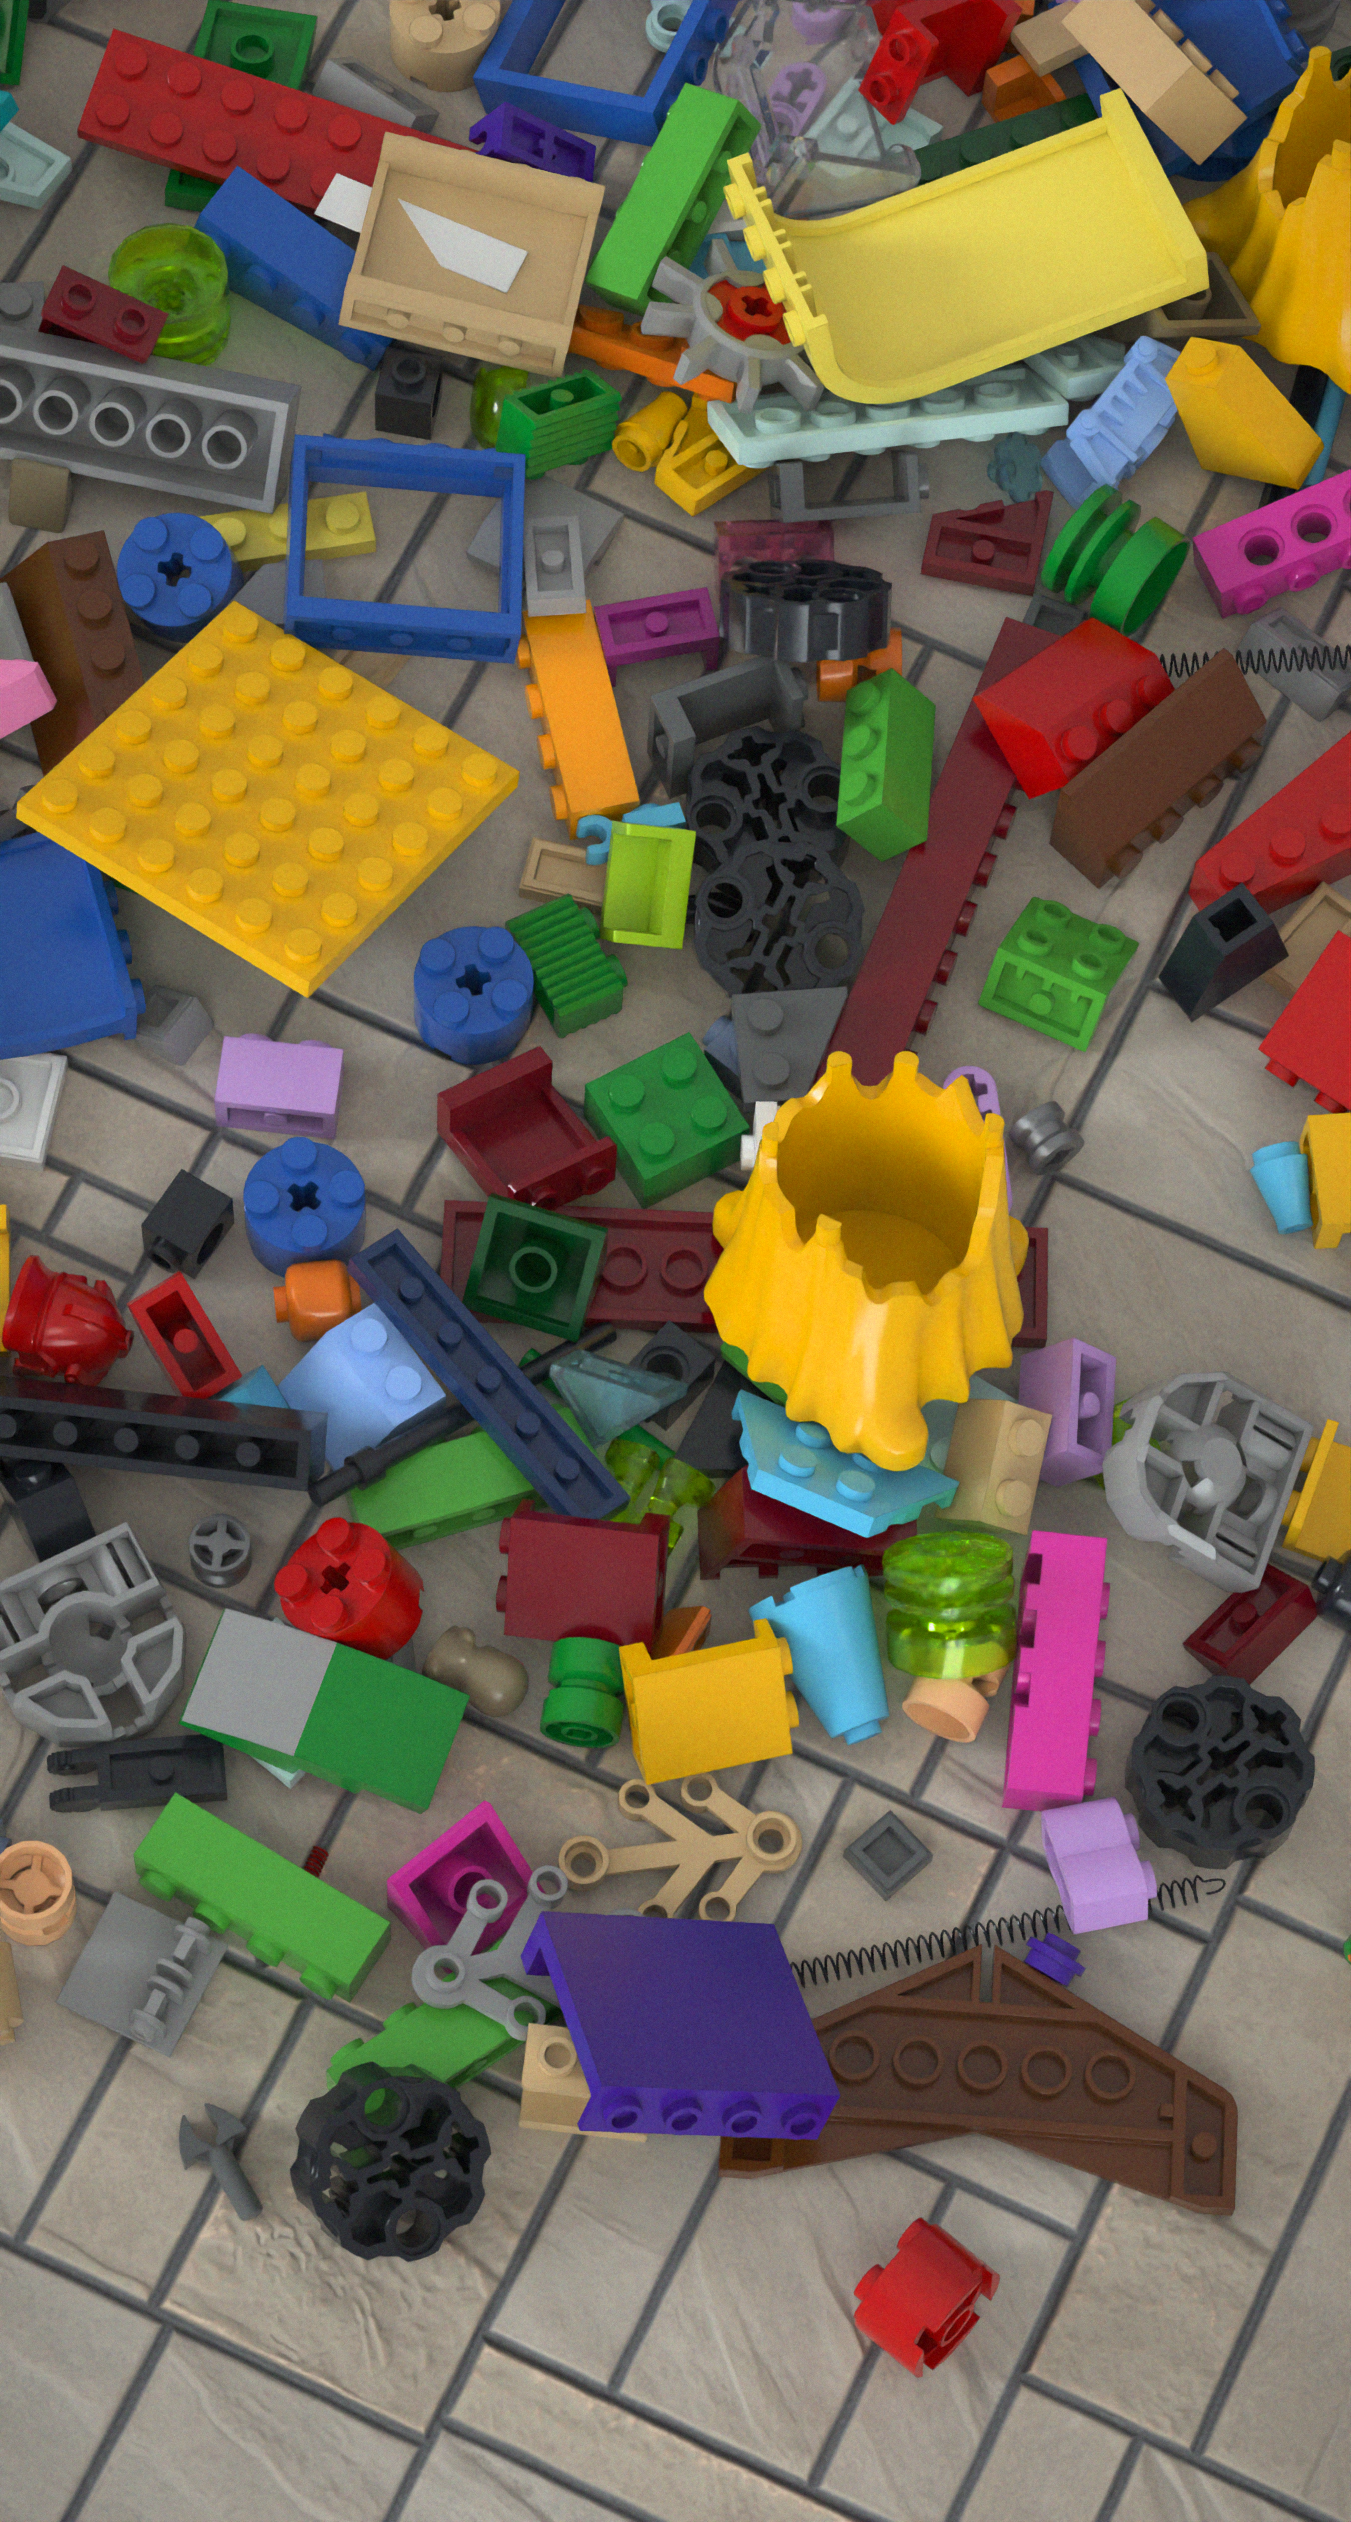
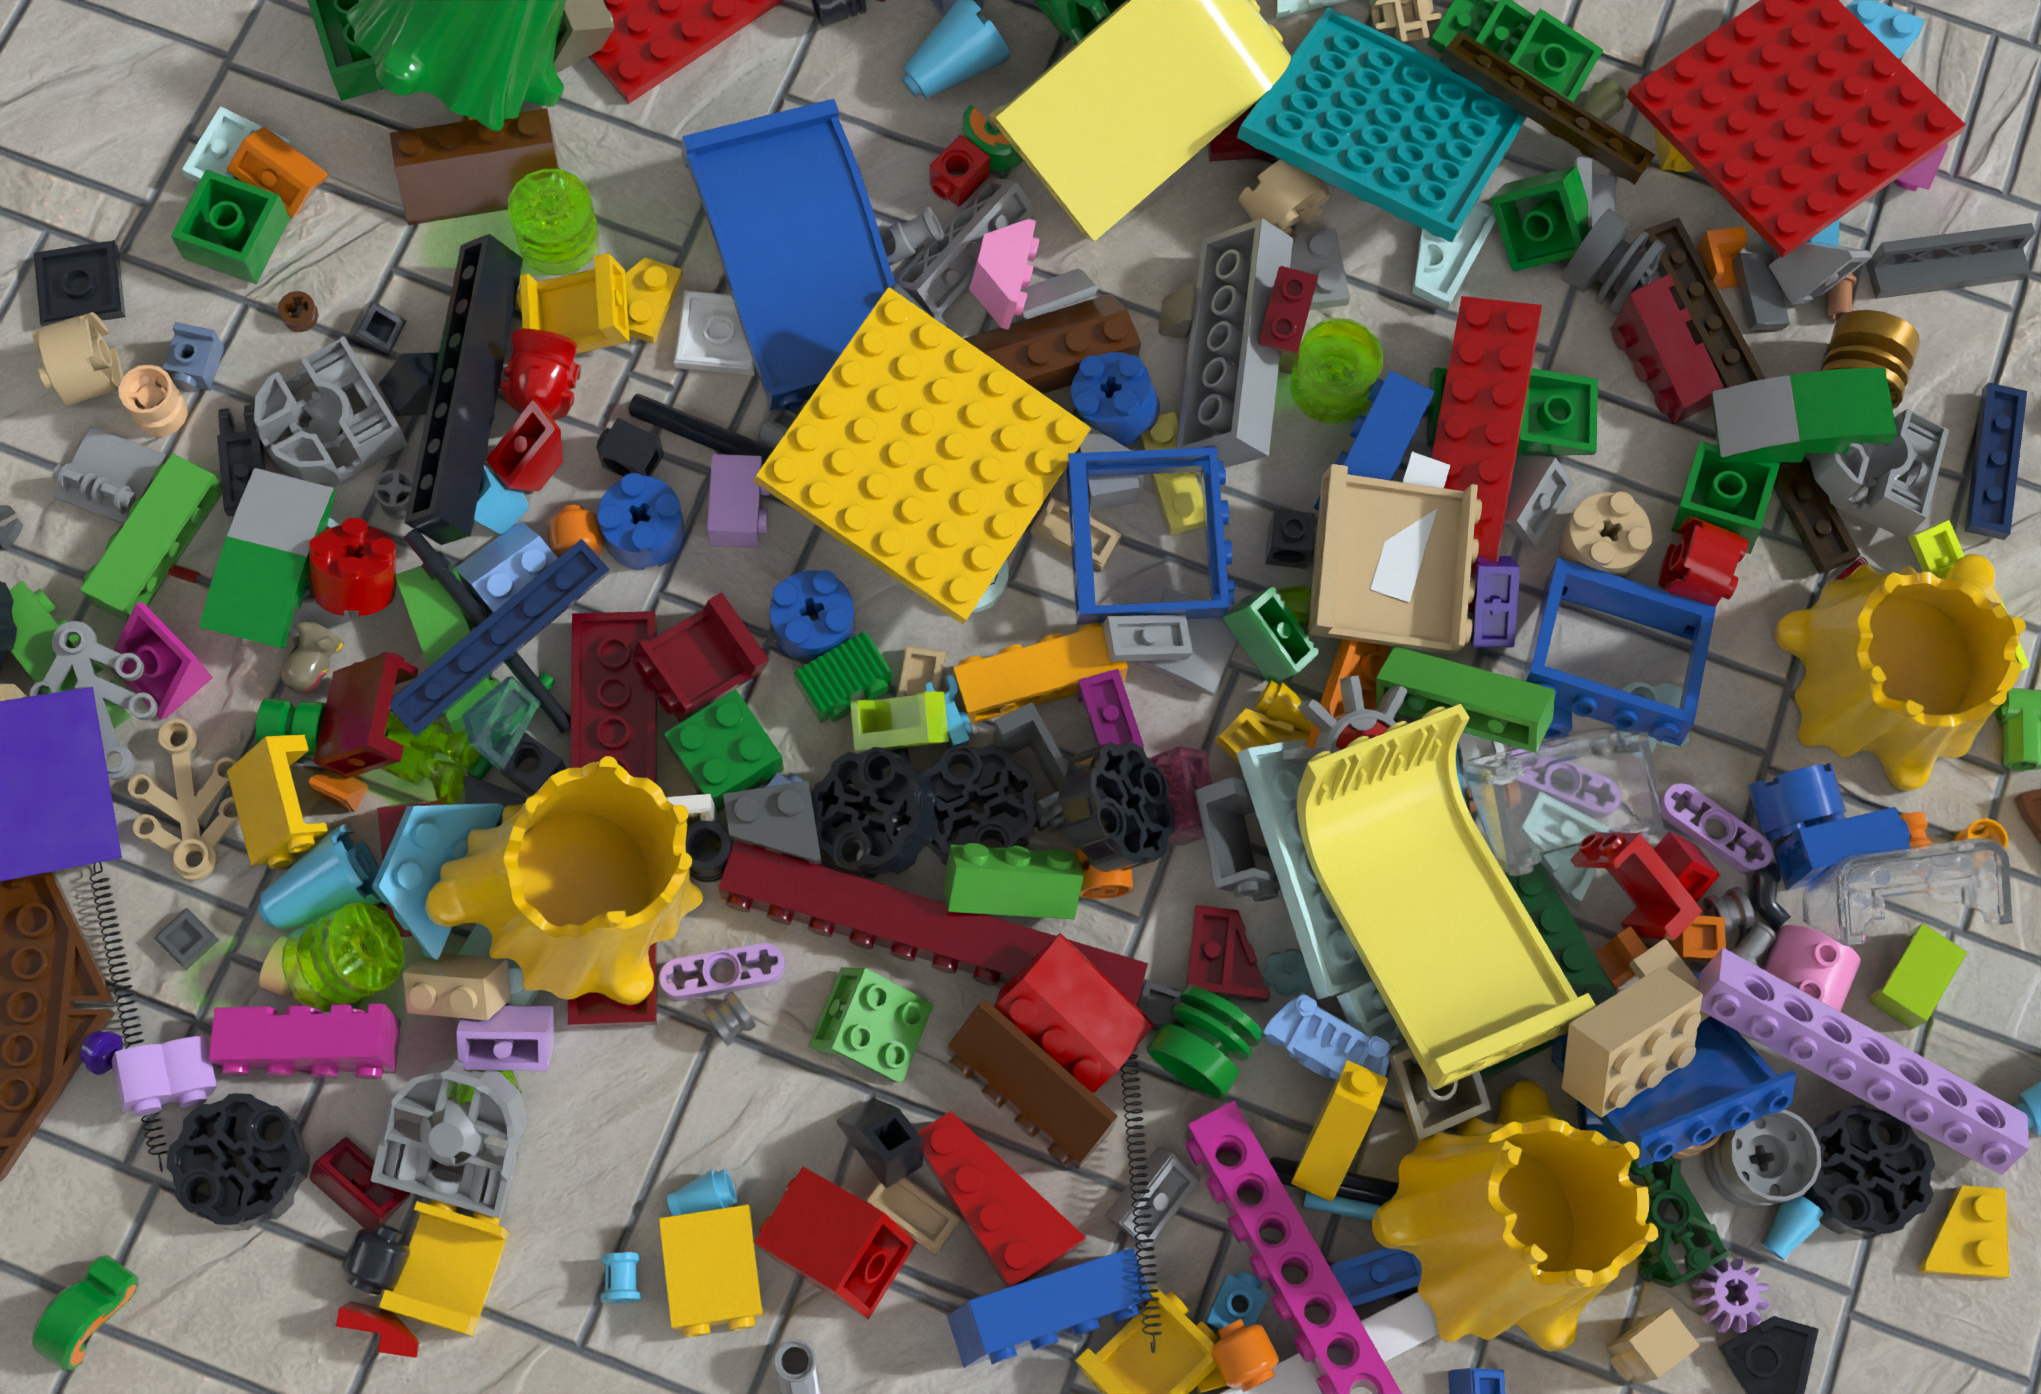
camera: 85 degrees right, 5 degrees up
(178, 1099) = (695, 428): none -> black axle
(536, 1267) = (594, 667): dark green slope -> none

